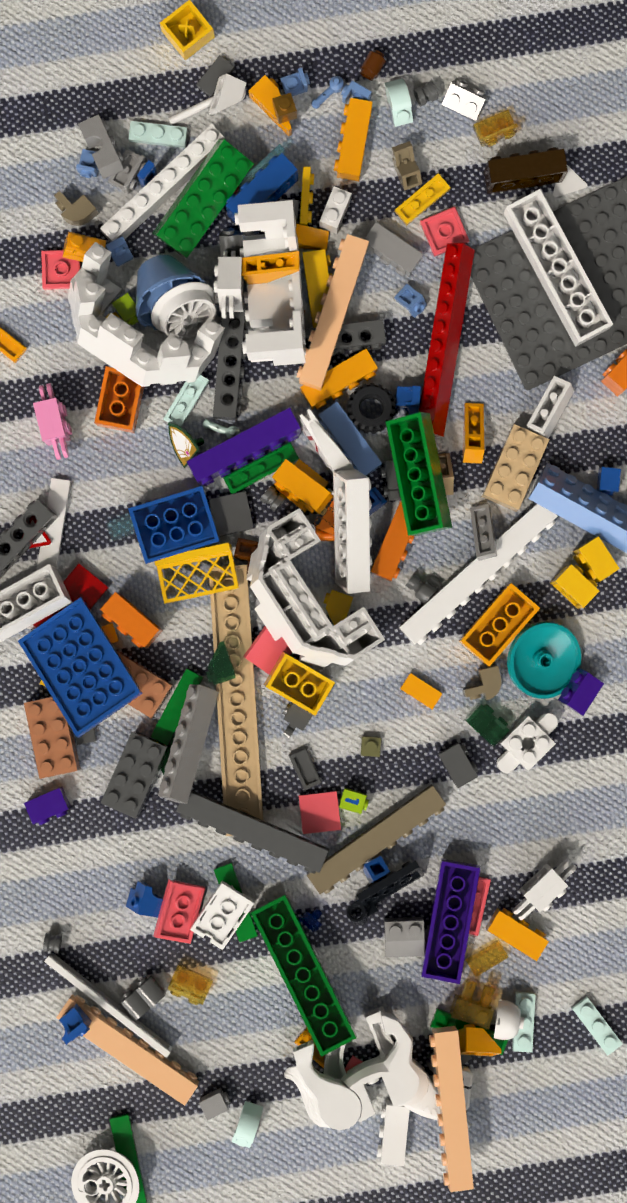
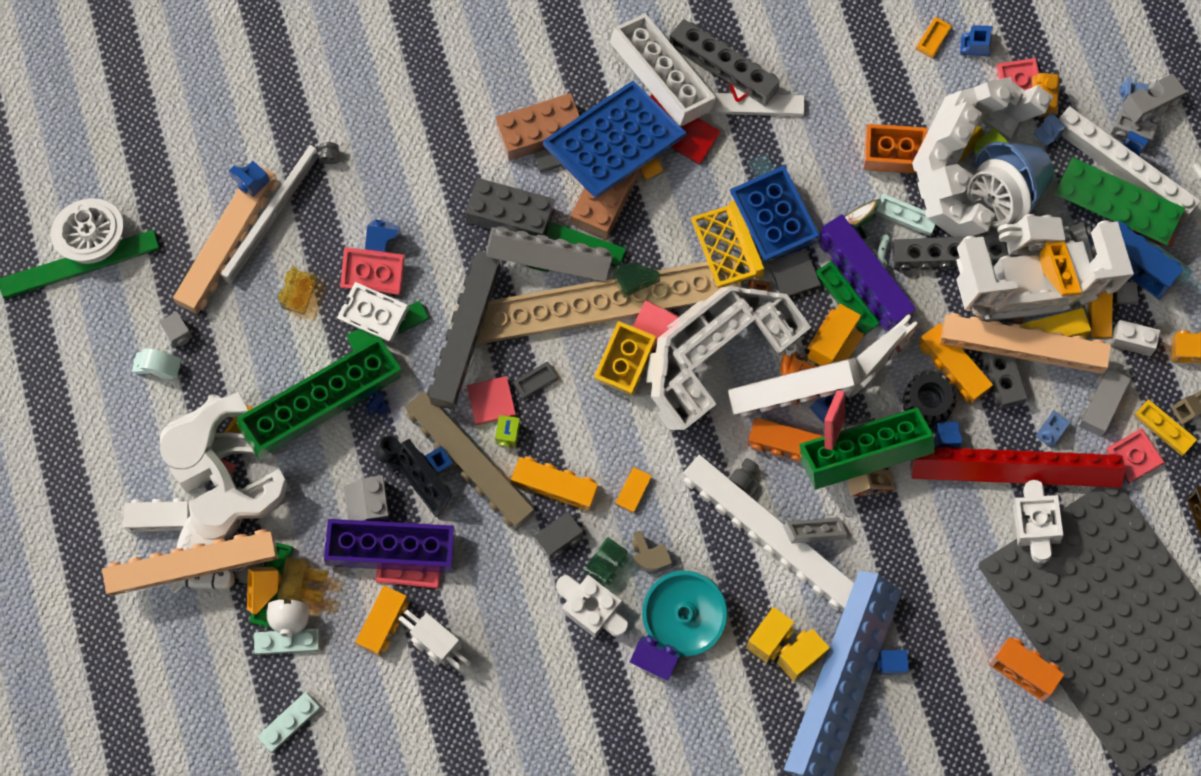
camera: 85 degrees right, 15 degrees down
(17, 302) = (977, 41): none -> blue brick
(48, 805) = (468, 131): dark purple brick -> none
(52, 421) = (861, 86): bright pink brick -> none
(79, 212) = (1081, 86): dark tan brick -> none
(130, 620) = (668, 185): orange brick -> none
(143, 997) = (280, 246): dark grey brick -> none
(158, 134) = (1179, 154): light aqua plate -> none
(271, 497) = (817, 312): dark grey wheel -> none
(296, 717) = (587, 363): dark grey brick -> none
(306, 196) = (1143, 307): yellow plate -> none
(337, 605) = (717, 388): yellow slope -> none
(349, 439) = (891, 382): medium blue brick -> none
(370, 746) = (567, 444): olive plate -> none
(395, 500) = (834, 420): none -> coral tile
(408, 762) = (554, 483): none -> light orange brick
(473, 433) = (920, 510): light orange slope -> none
(487, 958) = (352, 593): clear yellow tile -> none
(499, 624) = (717, 558): light orange brick -> none
(500, 330) = (1037, 521): none -> white brick
(515, 468) = (892, 557): tan brick -> none
(550, 407) = (962, 587): white brick -> none
(557, 267) = (1117, 574): white brick -> none

